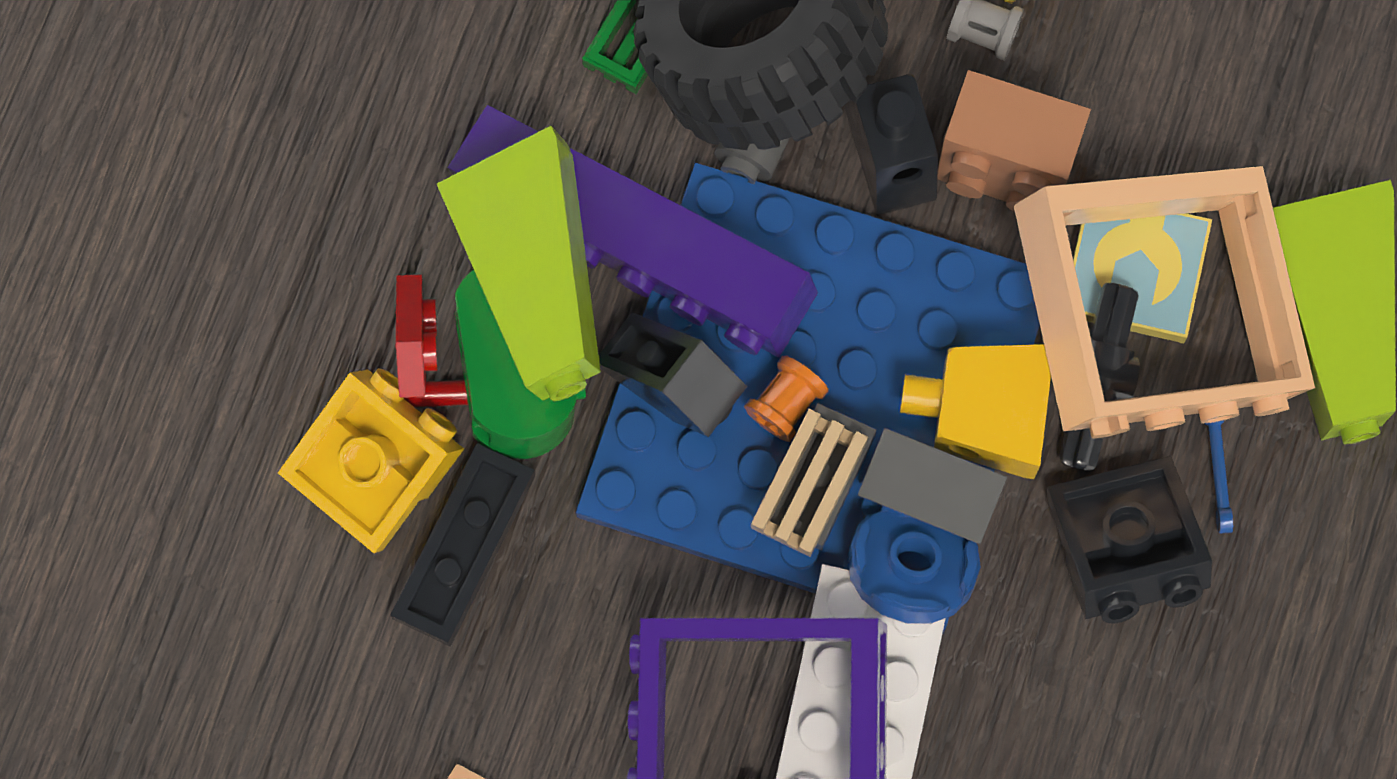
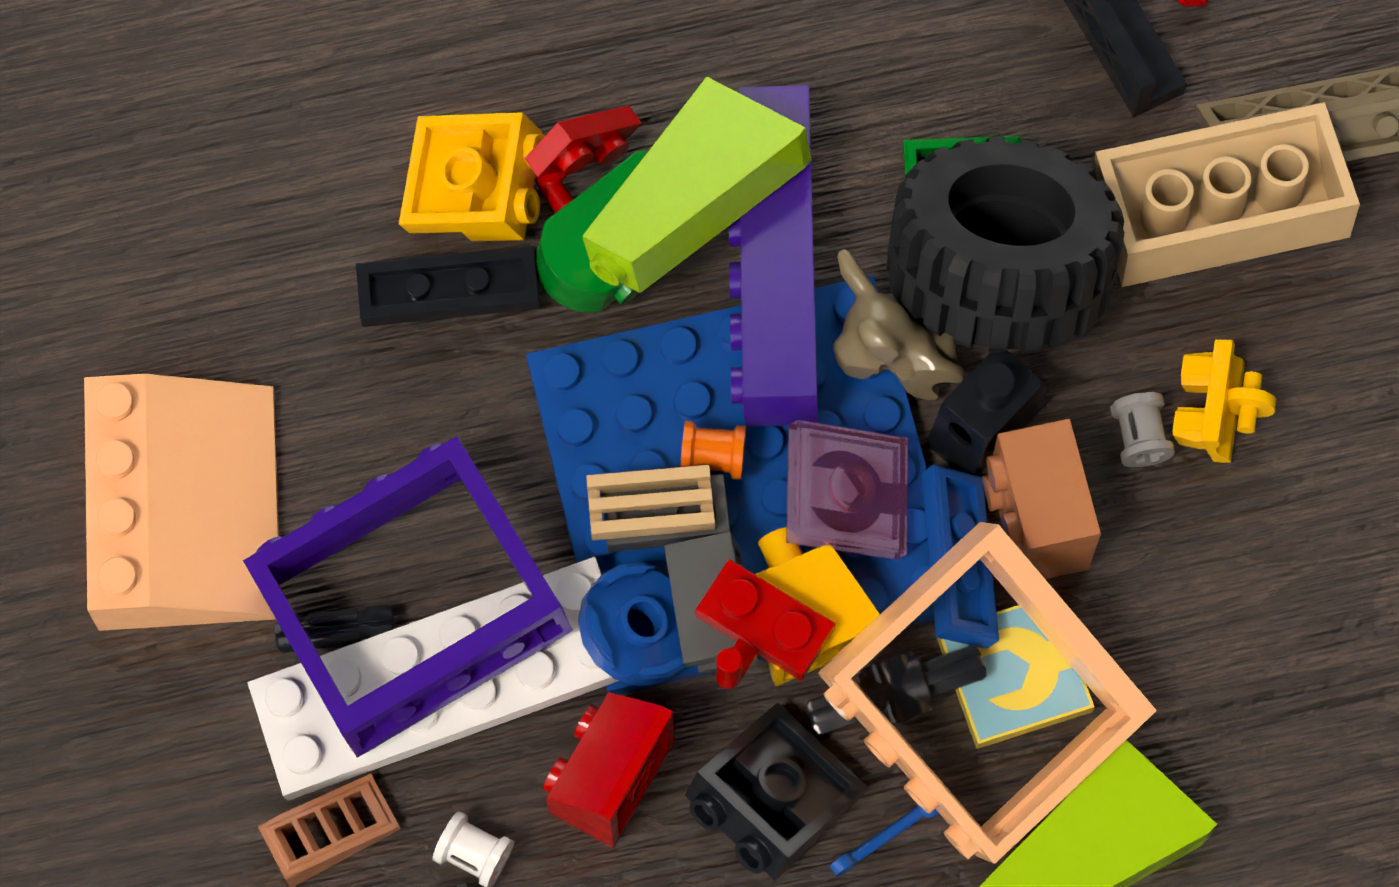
camera: 55 degrees right, 5 degrees down
(672, 373) = (676, 352): black slope -> none
(774, 182) = (886, 337): none -> dark tan animal
(899, 304) = (847, 490): none -> clear pink tile
(994, 240) = (952, 509): none -> blue tile
(995, 450) = (762, 624): none -> red plate
(1024, 667) = (611, 765): none -> red slope

